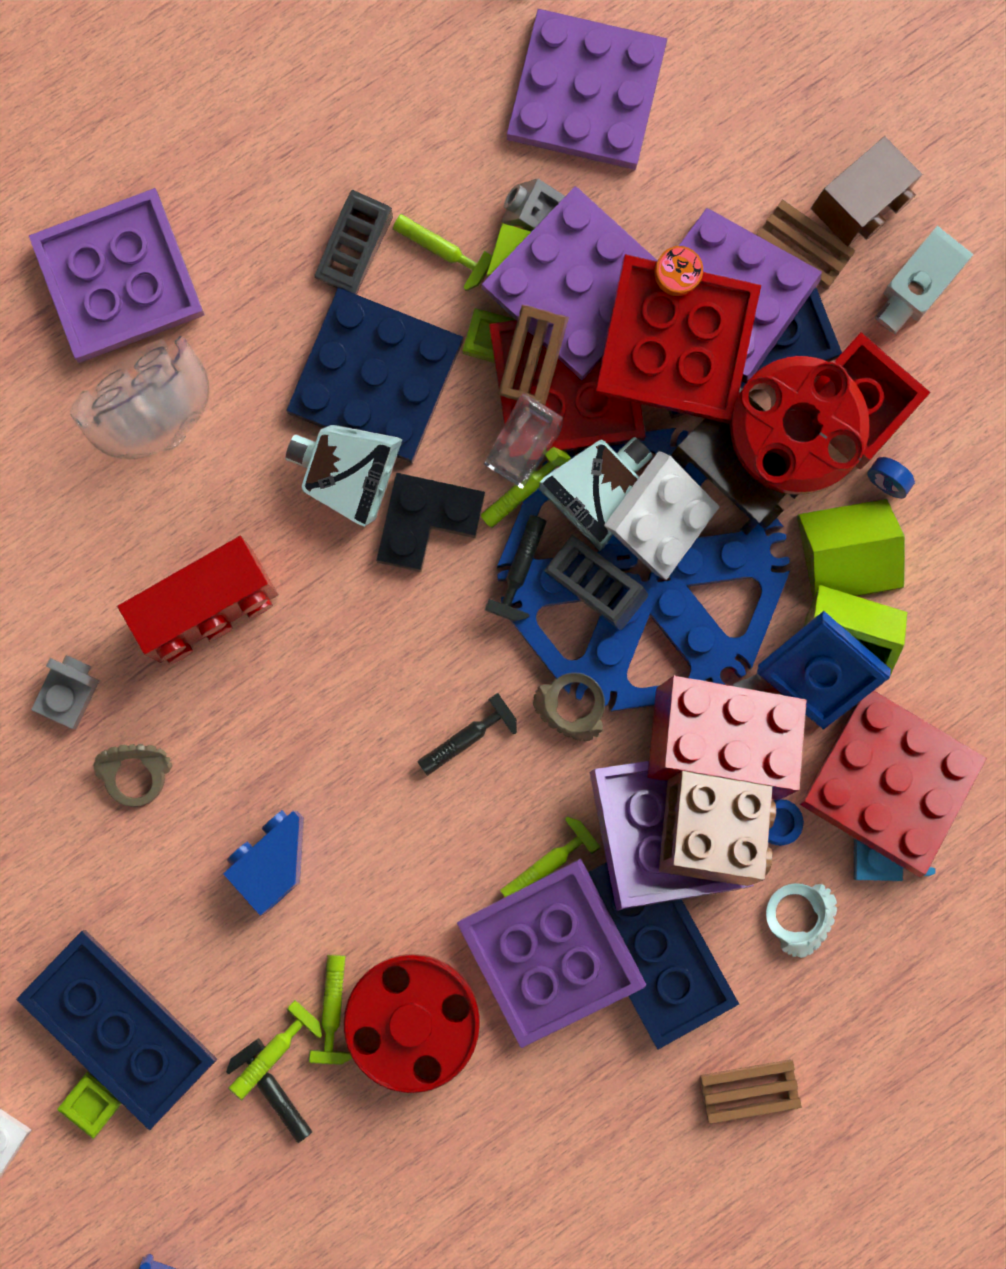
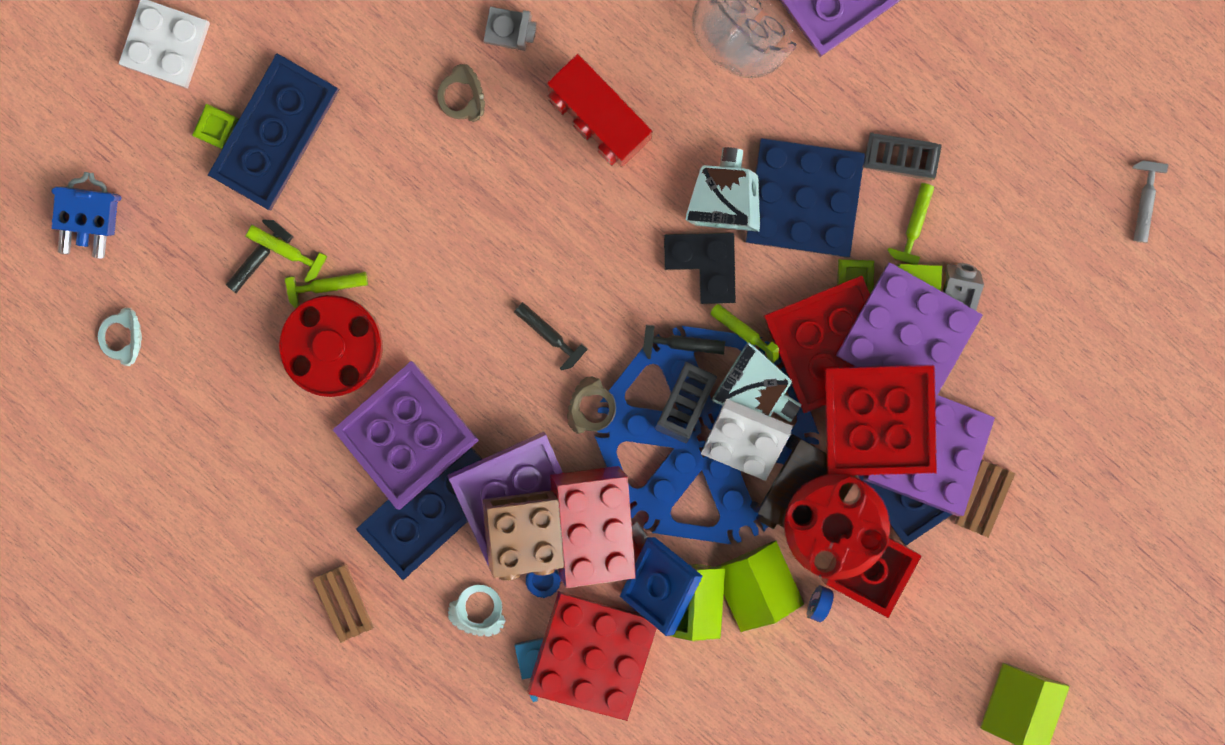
camera: 75 degrees right, 5 degrees up
(272, 865) = (418, 215): blue slope -> none
(524, 440) = (776, 323): clear slope -> none
(544, 318) = (873, 315): medium nougat tile -> none
(553, 859) = (475, 419): lime piece -> none
(586, 89) = (1066, 304): medium lavender plate -> none
(678, 270) = (930, 408): tile -> none
(867, 191) = (1034, 535): brick -> none
(933, 268) = (988, 602): light aqua torso -> none

